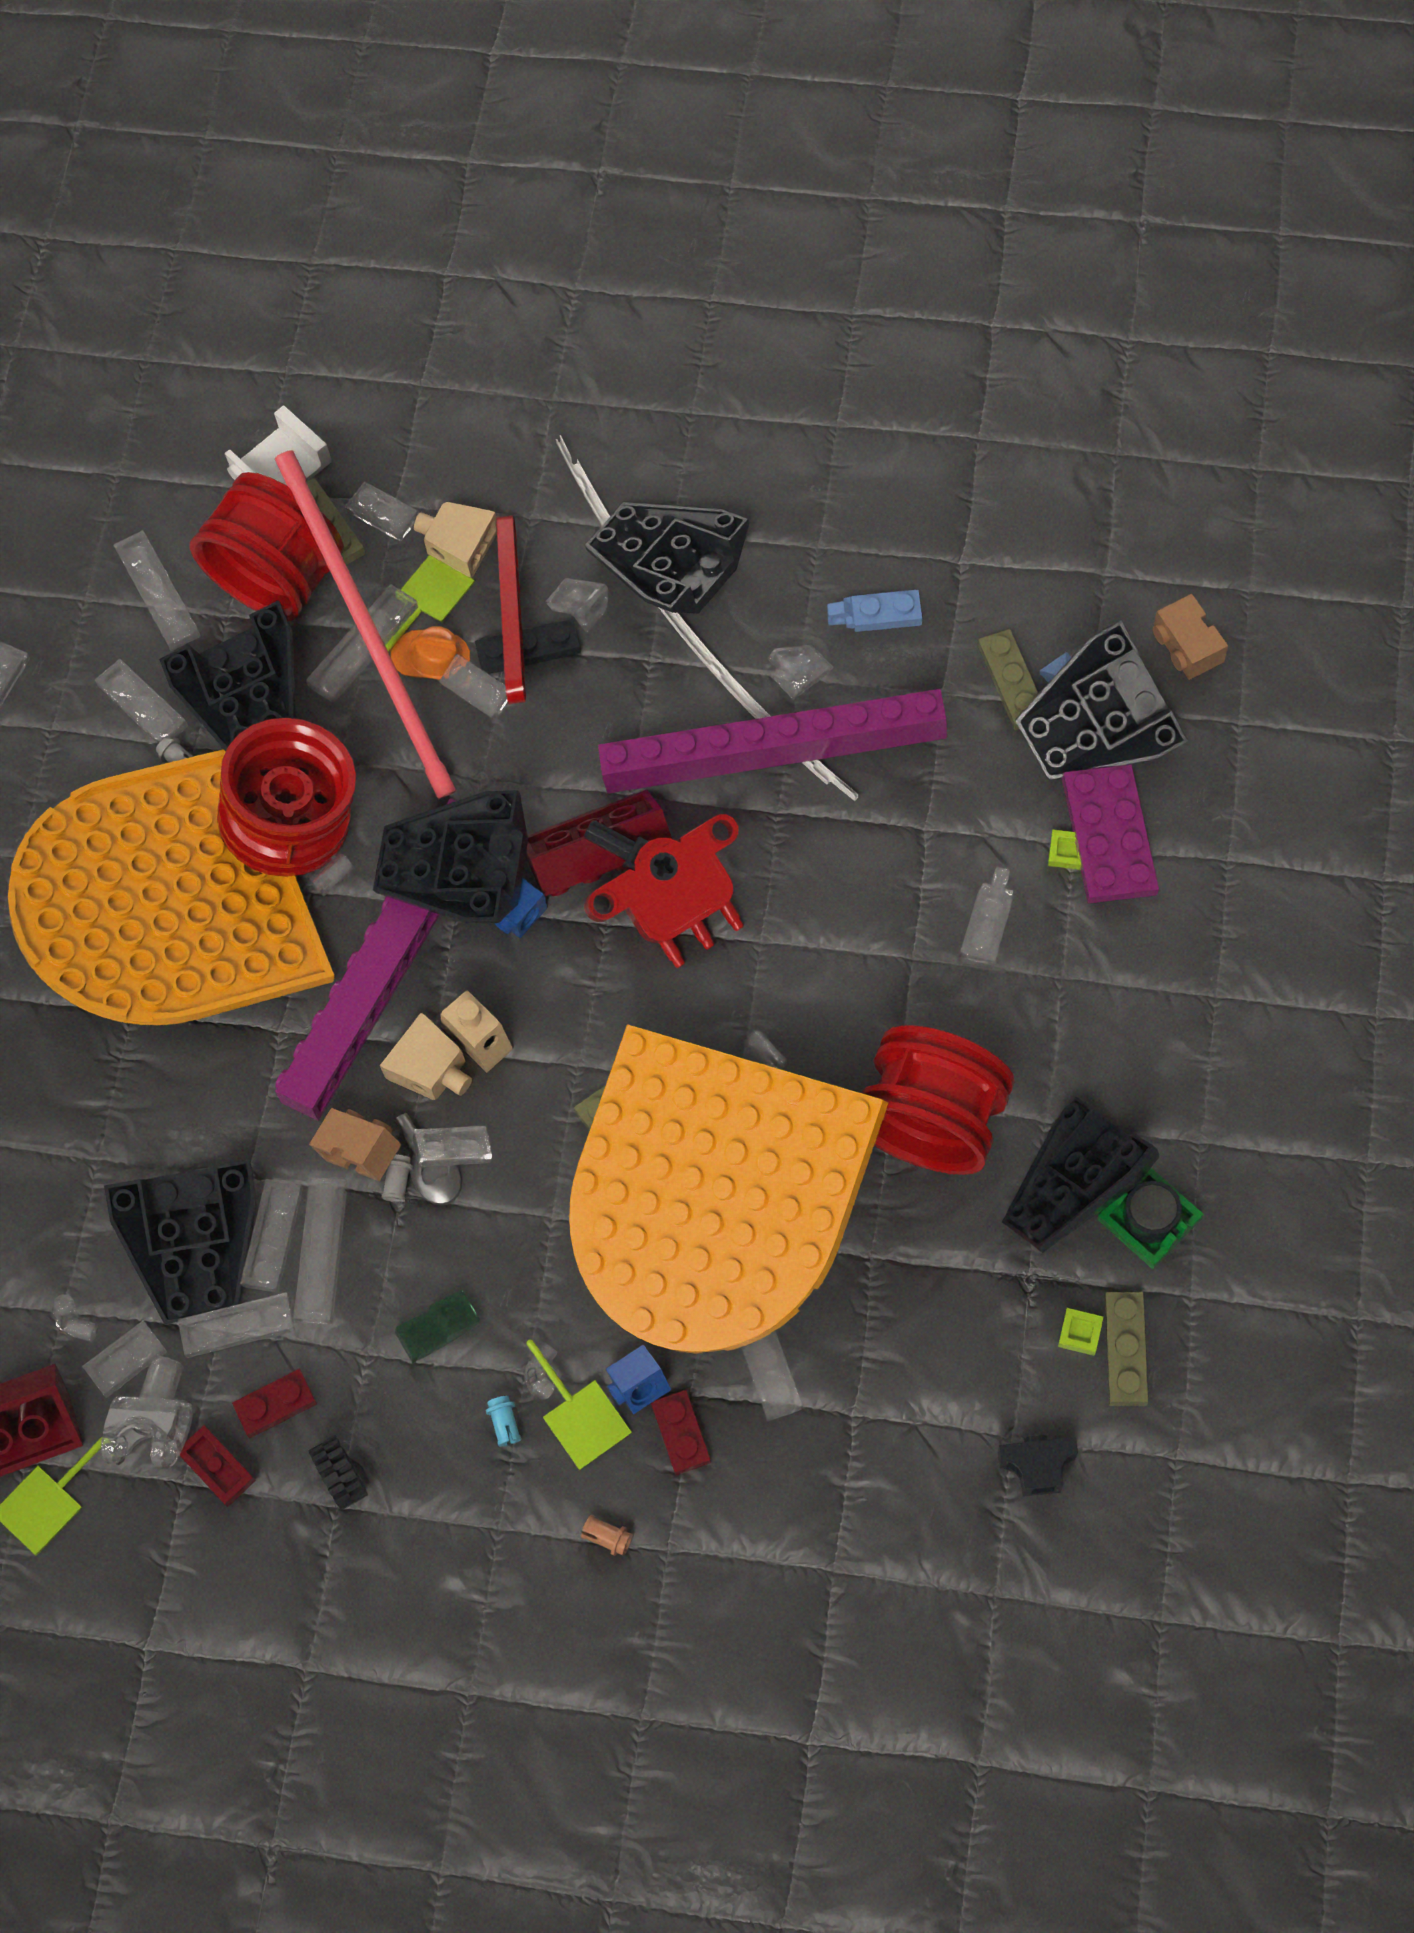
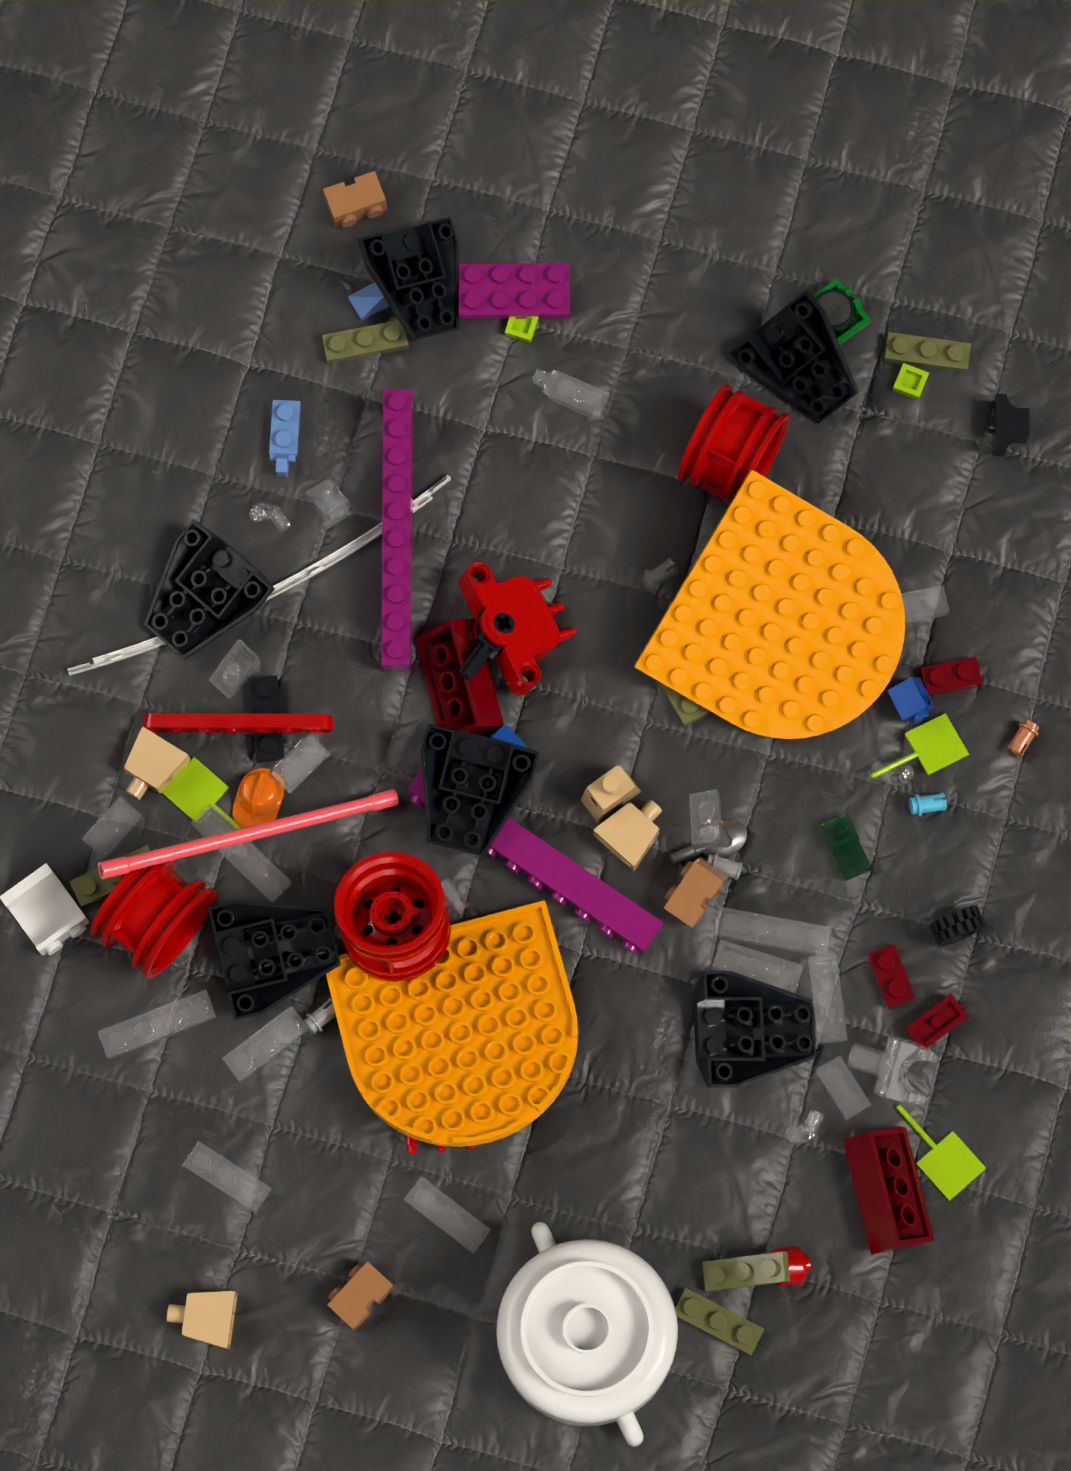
camera: 85 degrees left, 10 degrees up
(778, 613) = (271, 512): none -> clear arm

